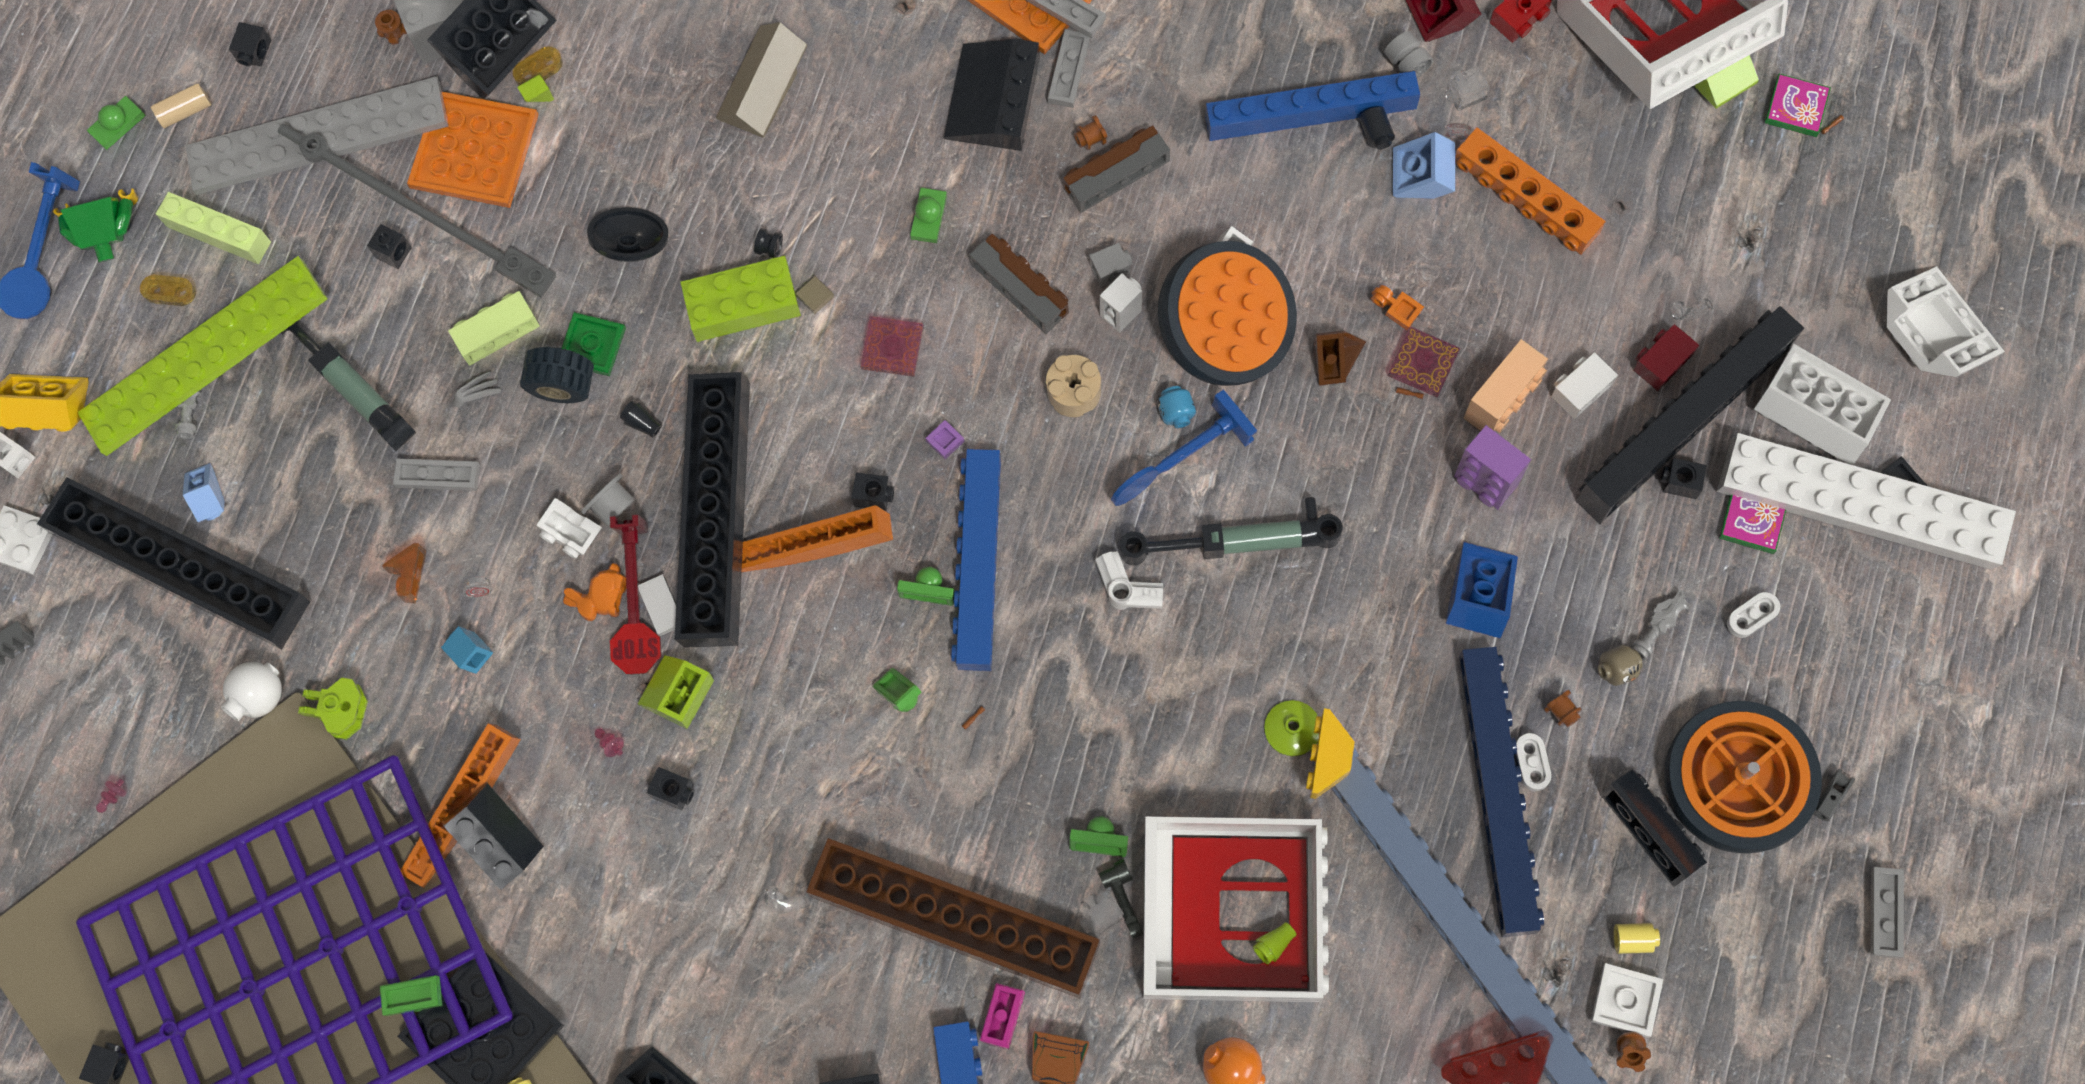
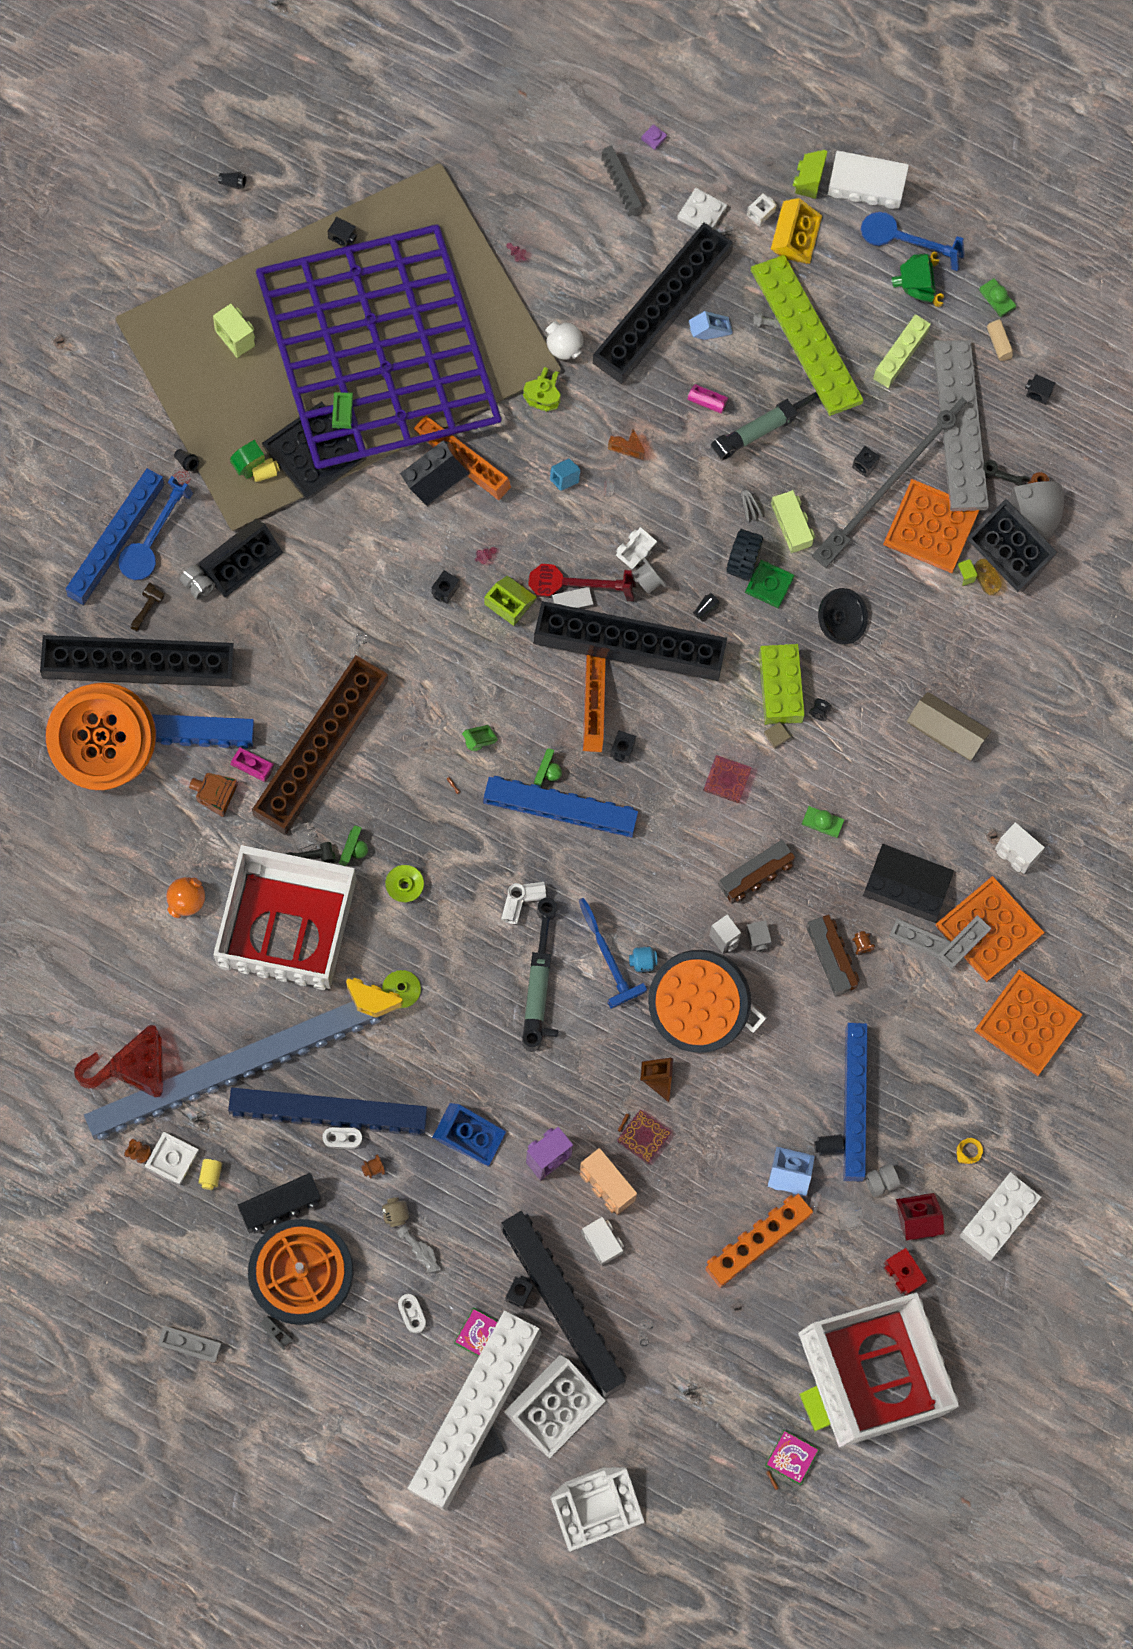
camera: 90 degrees right, 0 degrees up
(169, 291) = (861, 319): clear yellow plate -> none
(318, 475) = (707, 398): none -> dark pink brick
(379, 82) = (993, 467): none -> pearl dark grey brick
(436, 474) = (693, 472): light grey plate -> none
(603, 595) = (585, 564): orange animal -> none
(944, 439) = (651, 801): medium lavender plate -> none
(1070, 371) = (666, 883): tan brick -> none
(1143, 739) = (400, 875): none -> lime dish
(1272, 944) = (259, 941): lime cone -> none
(1403, 309) = (685, 1130): orange plate -> none
(1665, 357) = (612, 1304): dark red brick -> none

